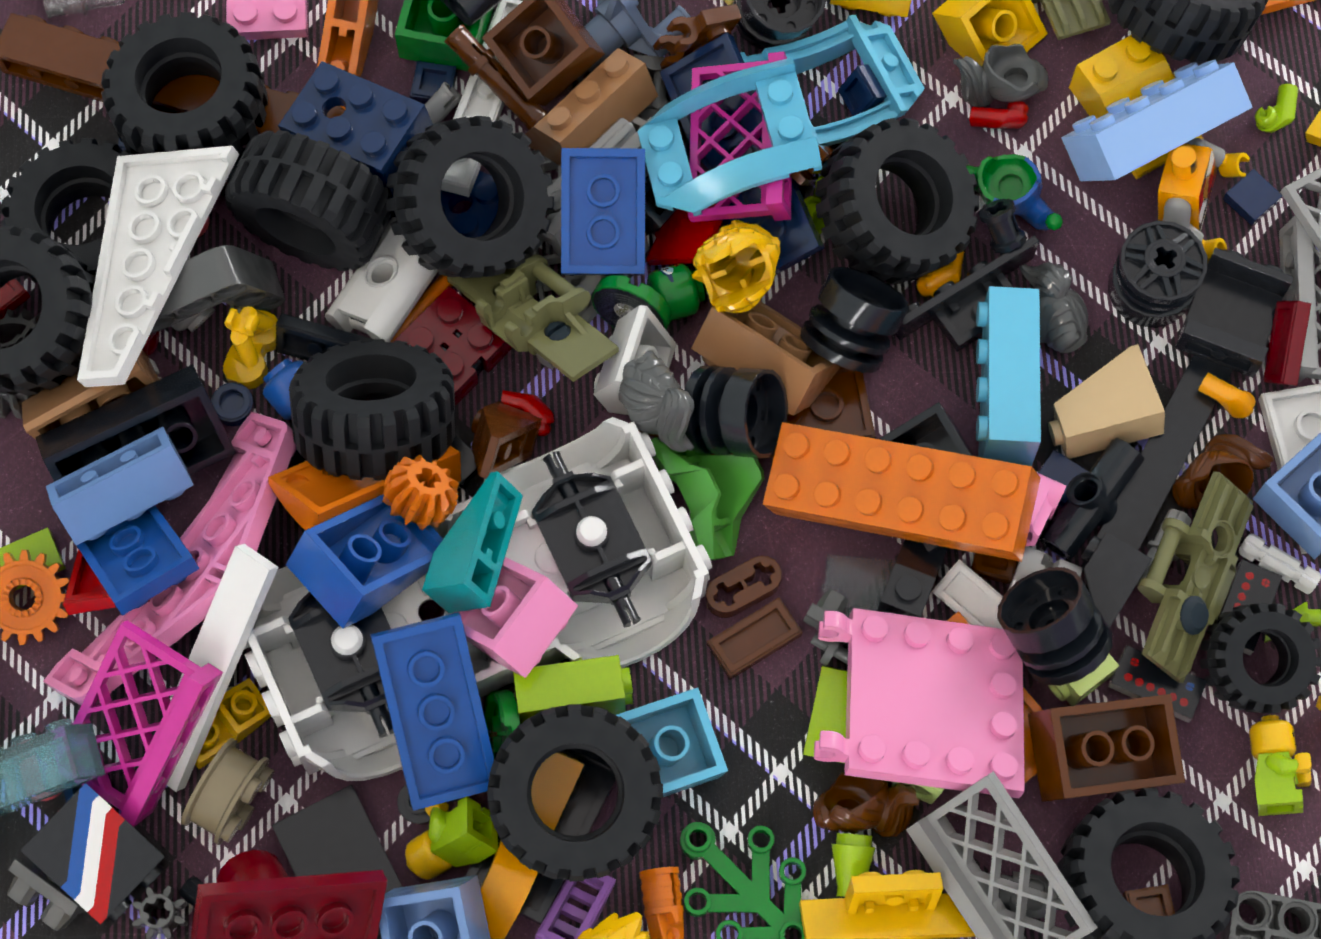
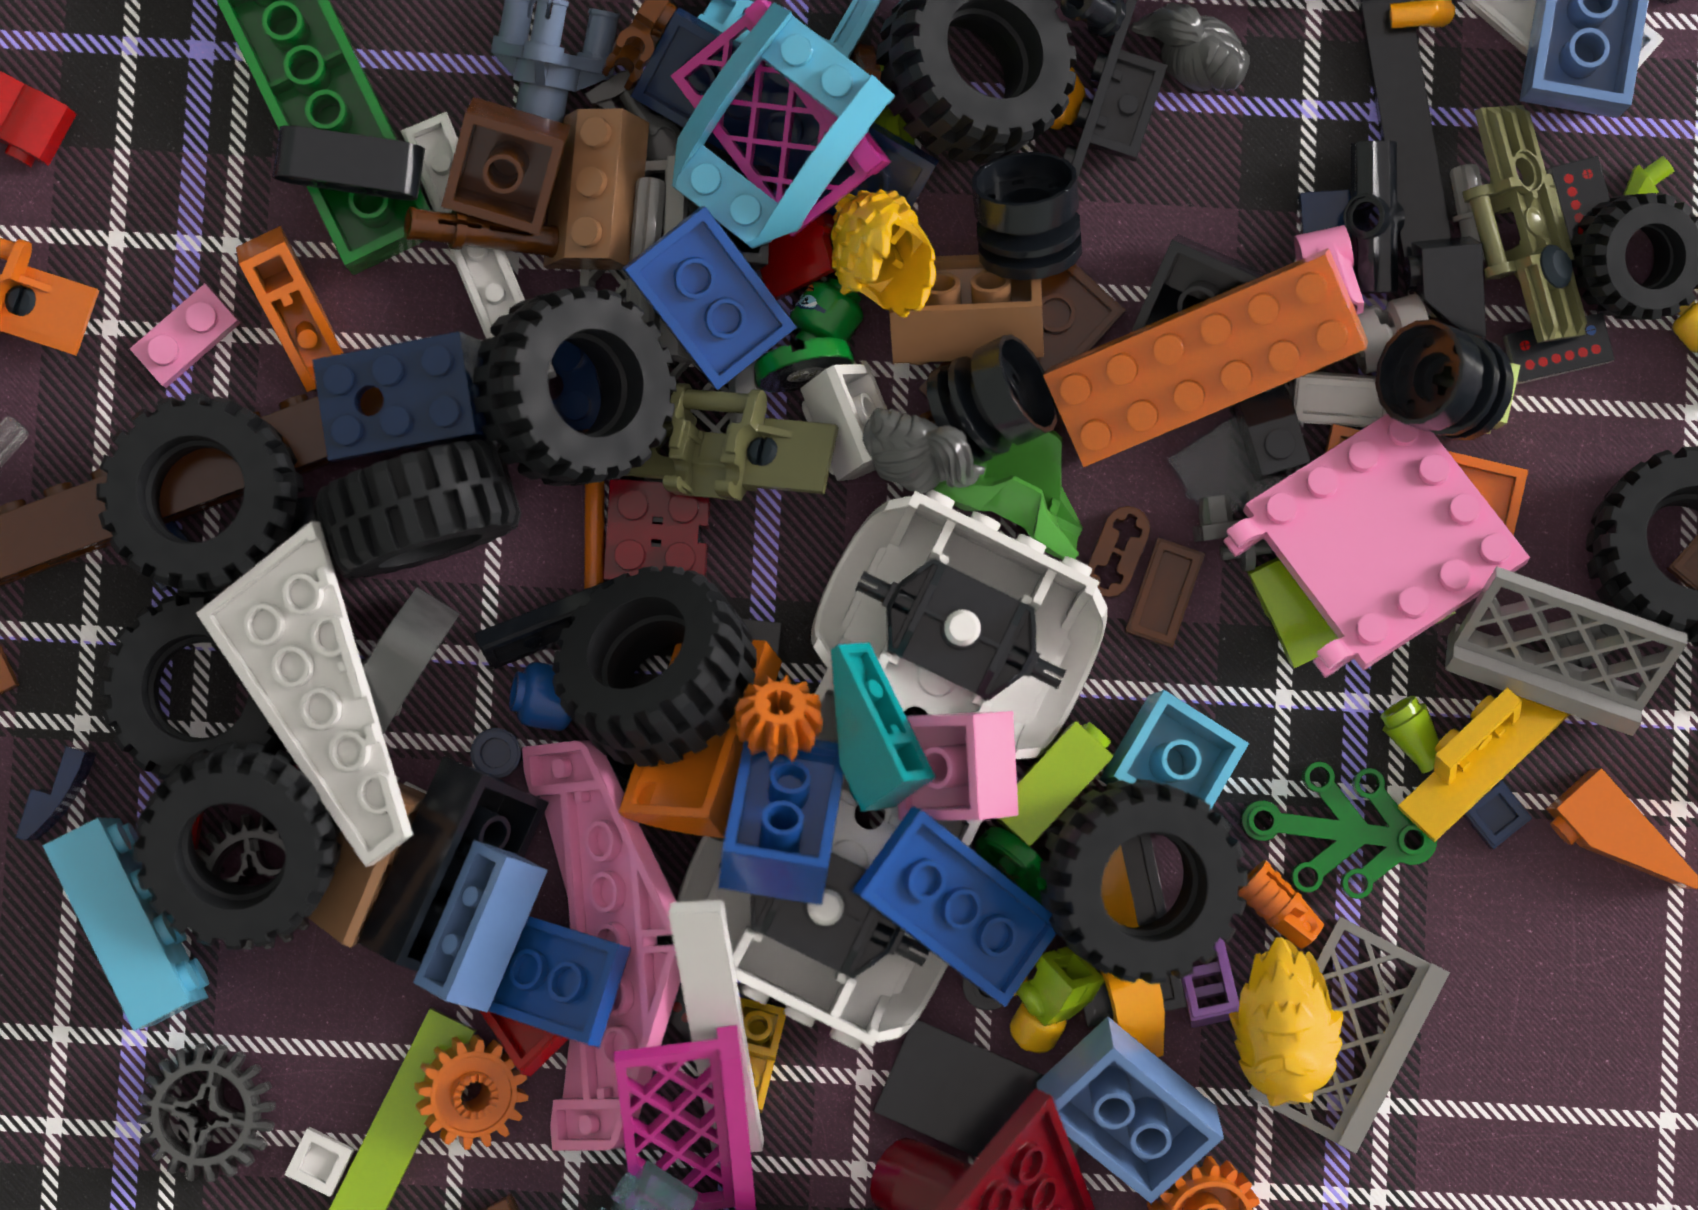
camera: 40 degrees left, 15 degrees up
(225, 792) = (818, 1118): dark tan wheel -> none
(252, 337) = (460, 675): yellow piece -> none
(381, 290) = (554, 554): white piece -> none
(429, 78) = (410, 277): dark blue tile -> none
(442, 102) = (440, 302): light grey pin -> none
(502, 437) = (788, 595): reddish brown slope -> none
(532, 405) = (785, 534): red arm -> none
(865, 804) = (1389, 680): reddish brown hair -> none
(1009, 375) = (1214, 159): medium azure wedge -> none
(1106, 747) = (1566, 454): reddish brown brick -> none
(1107, 406) = (1324, 112): tan slope -> none
(1223, 454) = (1469, 83): reddish brown hair -> none
(1280, 563) = (1587, 143): white axle -> none

